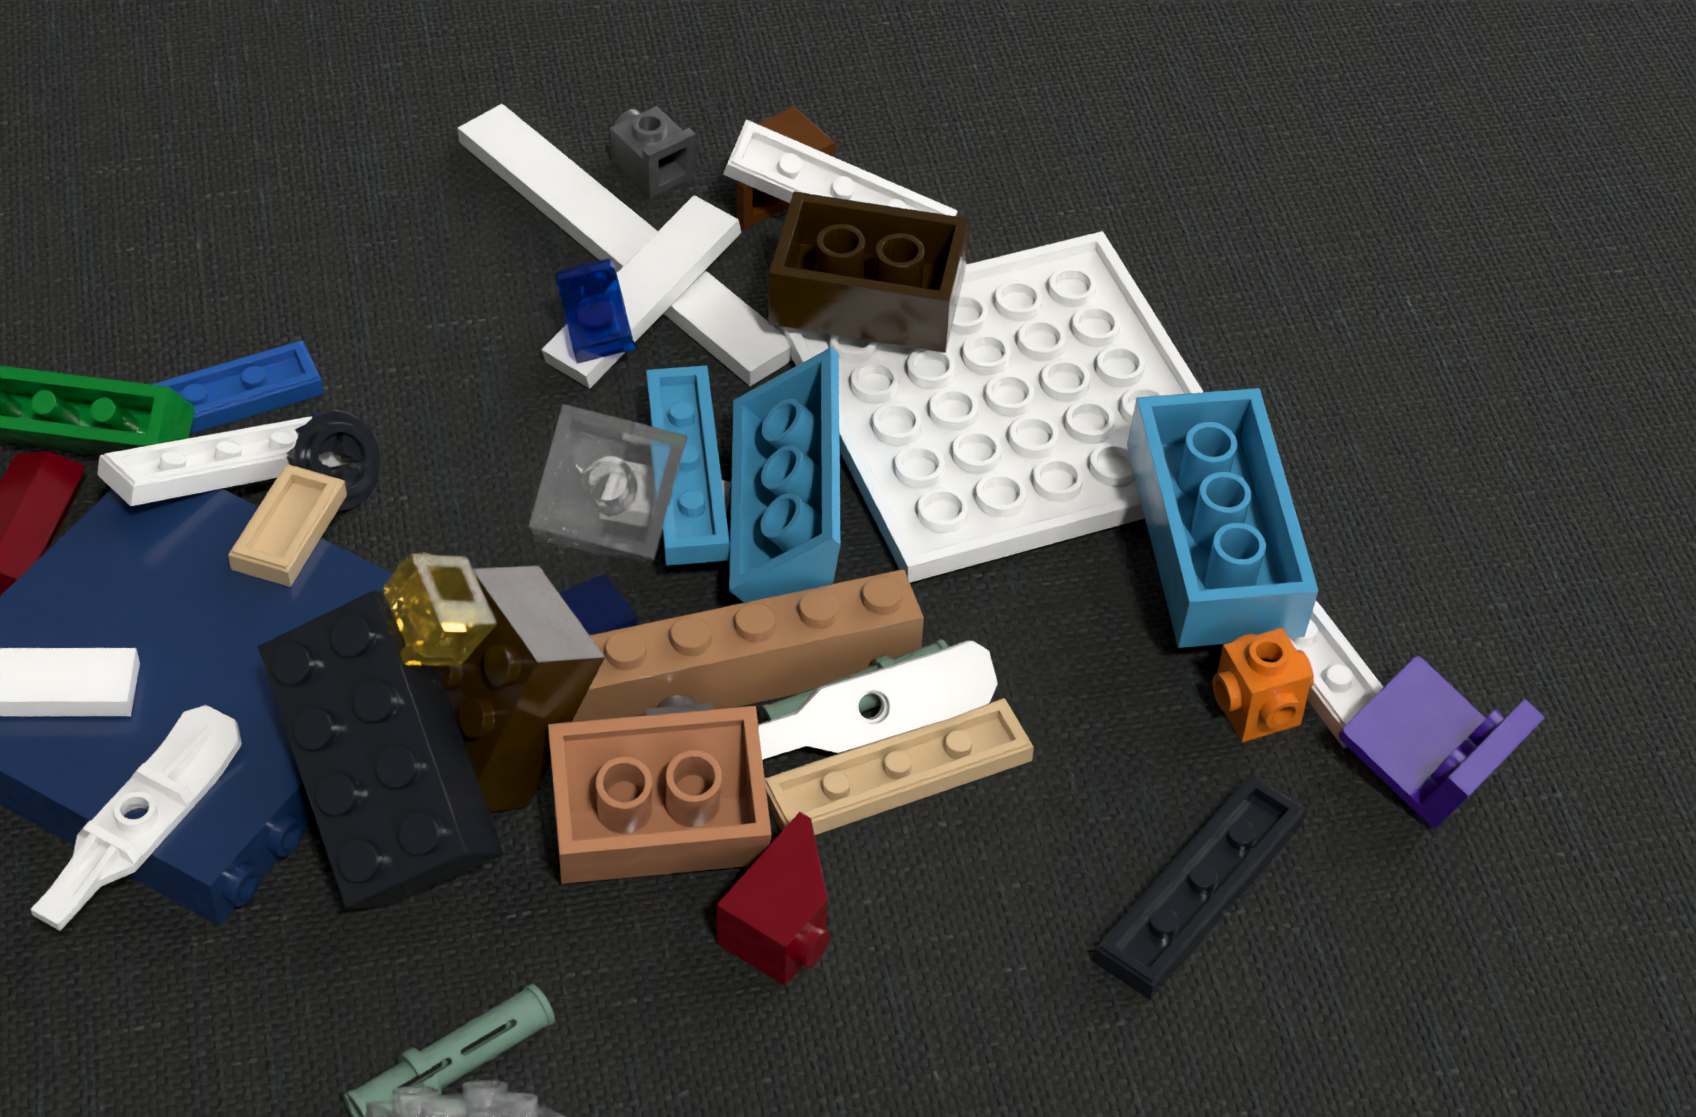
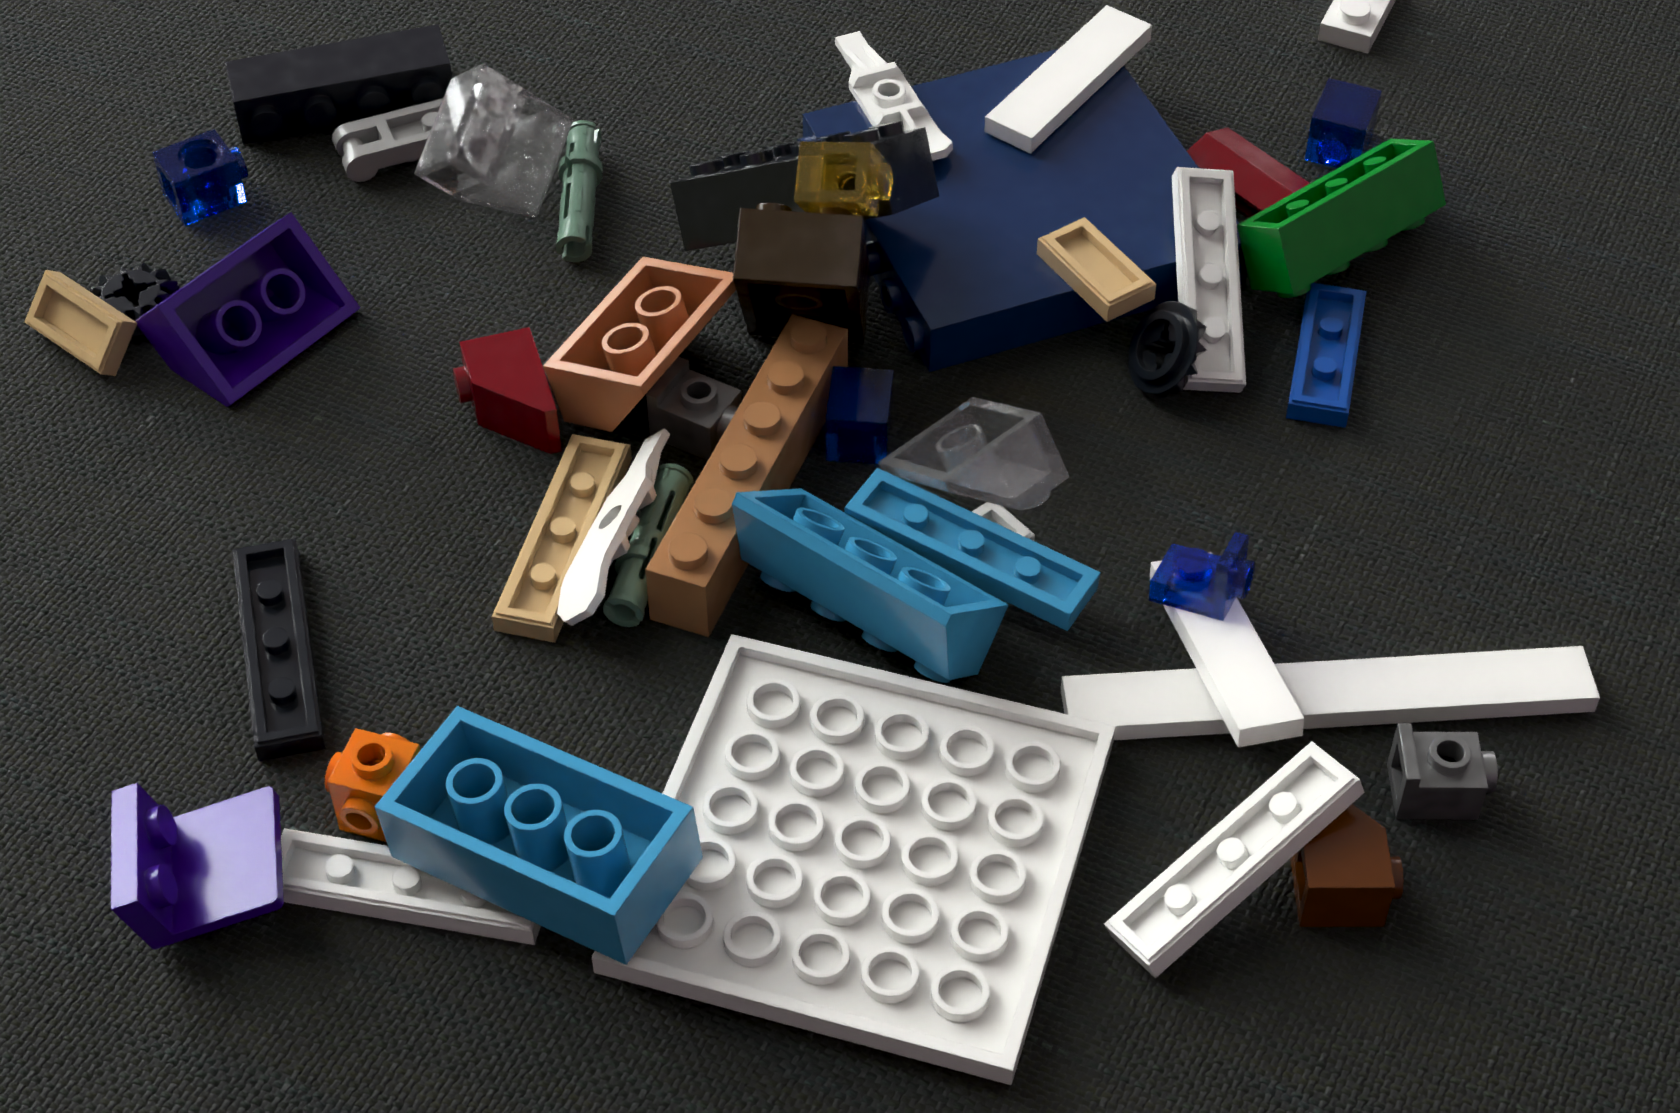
camera: 130 degrees right, 0 degrees up
(868, 271) = (1069, 766): dark brown brick -> none

